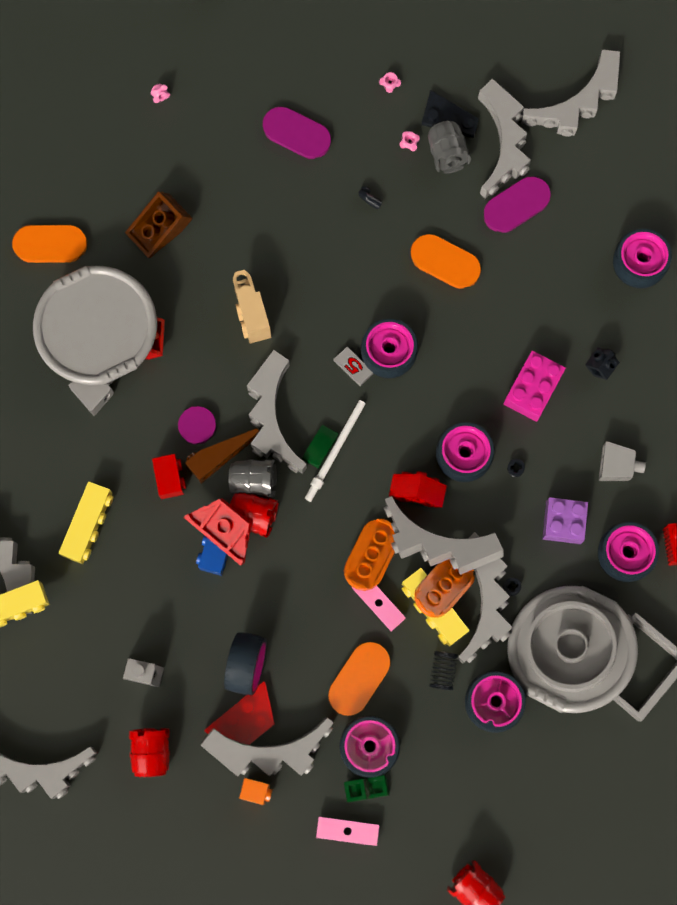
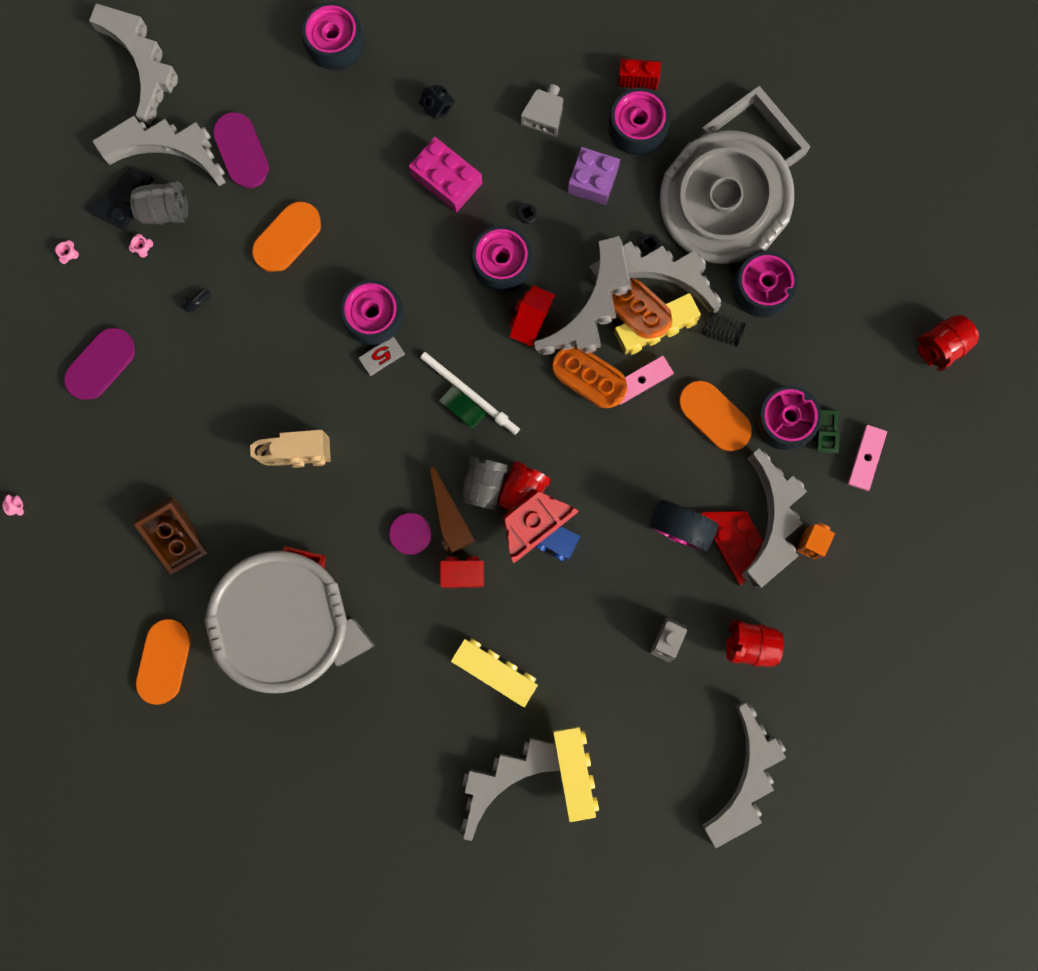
camera: 75 degrees left, 5 degrees up
(269, 439) = (416, 458): light grey arch -> none

